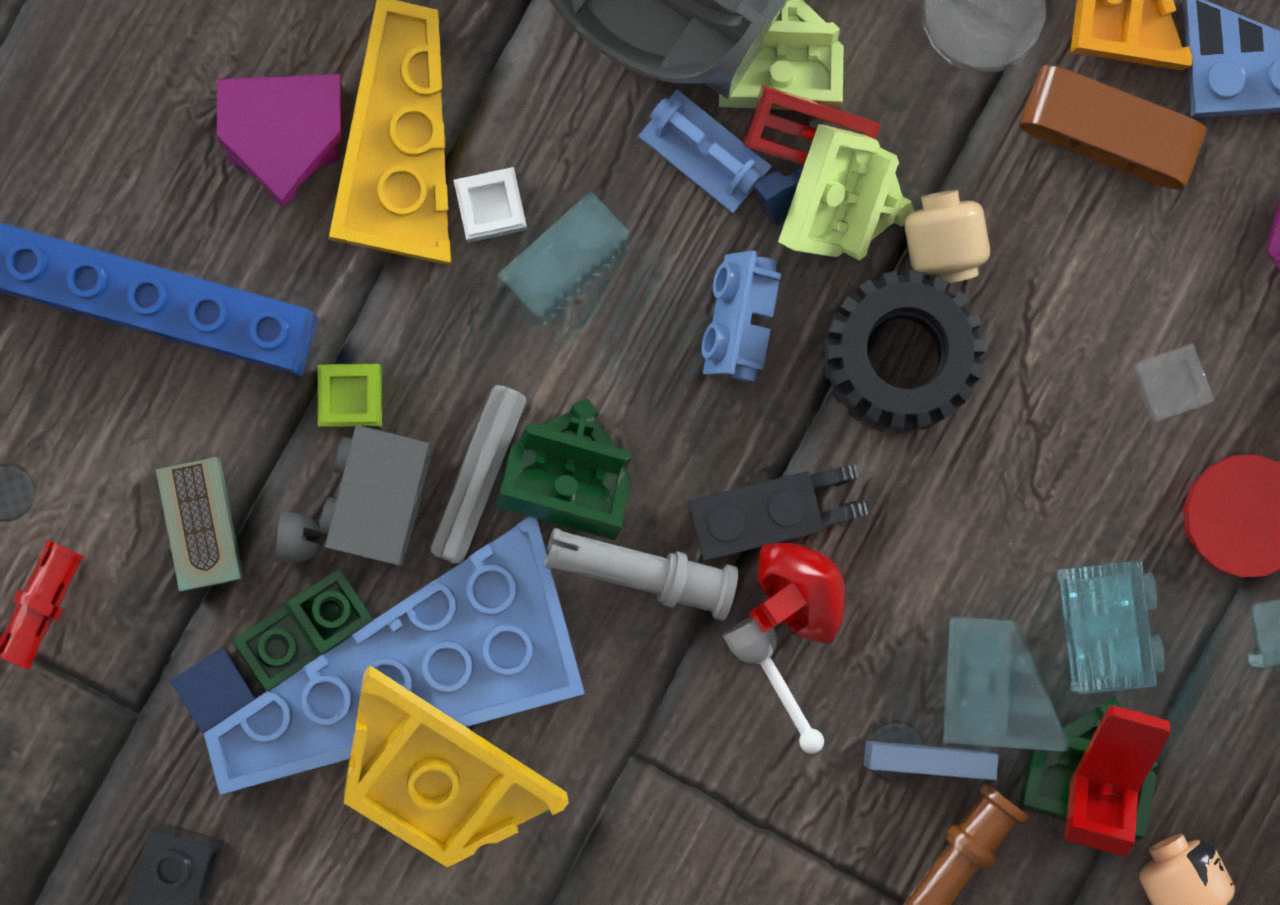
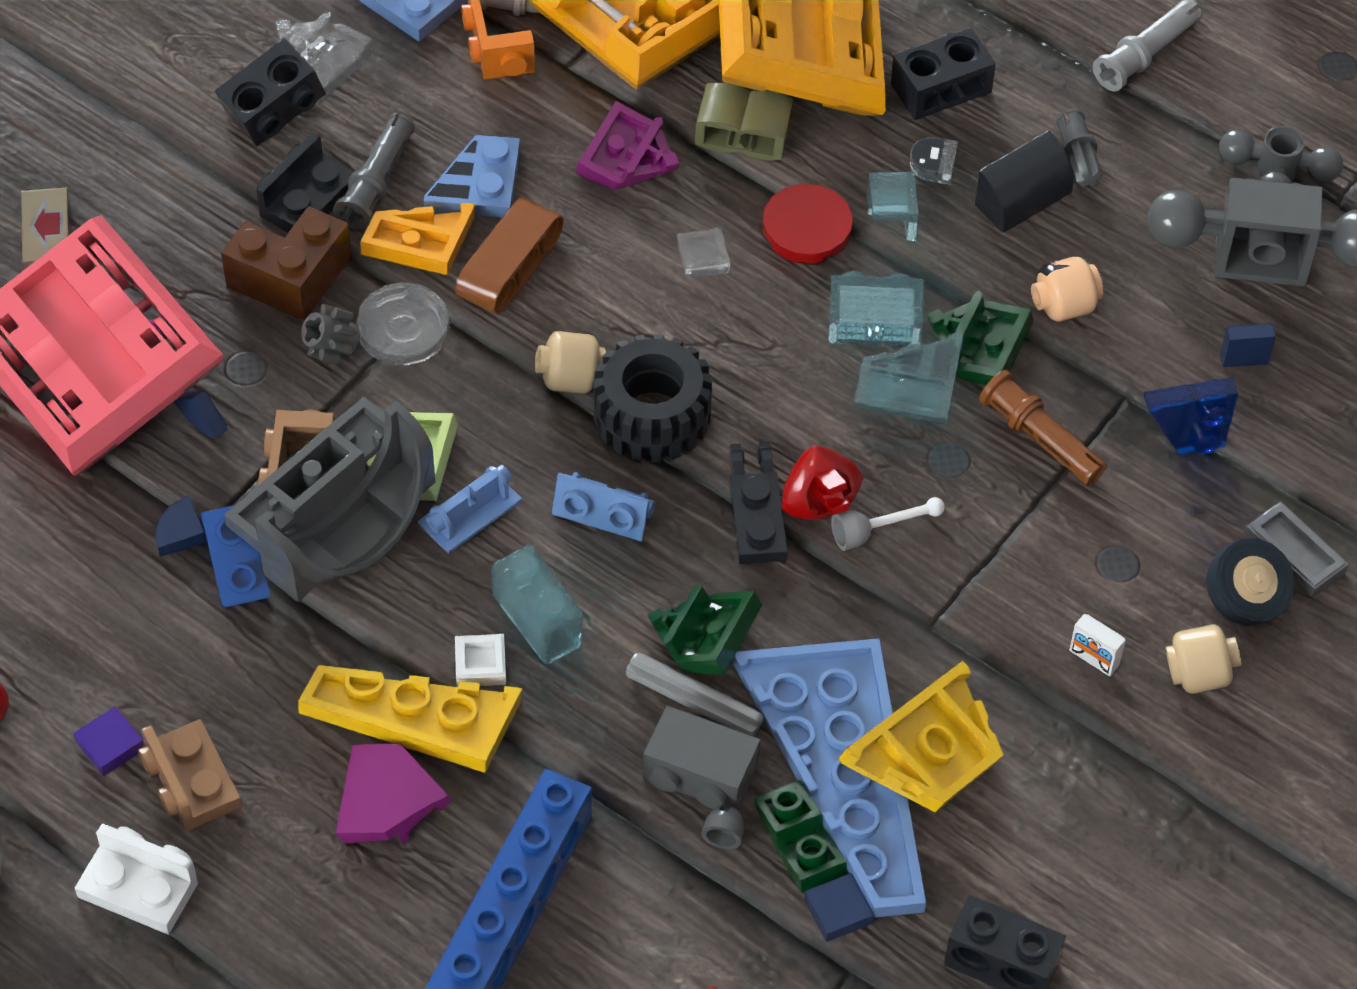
camera: 80 degrees left, 30 degrees down
(199, 524) = (701, 900): tile -> none
(349, 395) = (615, 778): lime tile -> none
(670, 578) = (797, 571): light grey pin -> none
(761, 117) = (456, 460): red tile -> none
(777, 193) = (516, 462): dark blue tile -> none
(844, 196) = (527, 417): yellowish green slope -> none
(931, 760) = (958, 428): sand blue tile -> none
(1109, 779) = (989, 321): red bracket -> none

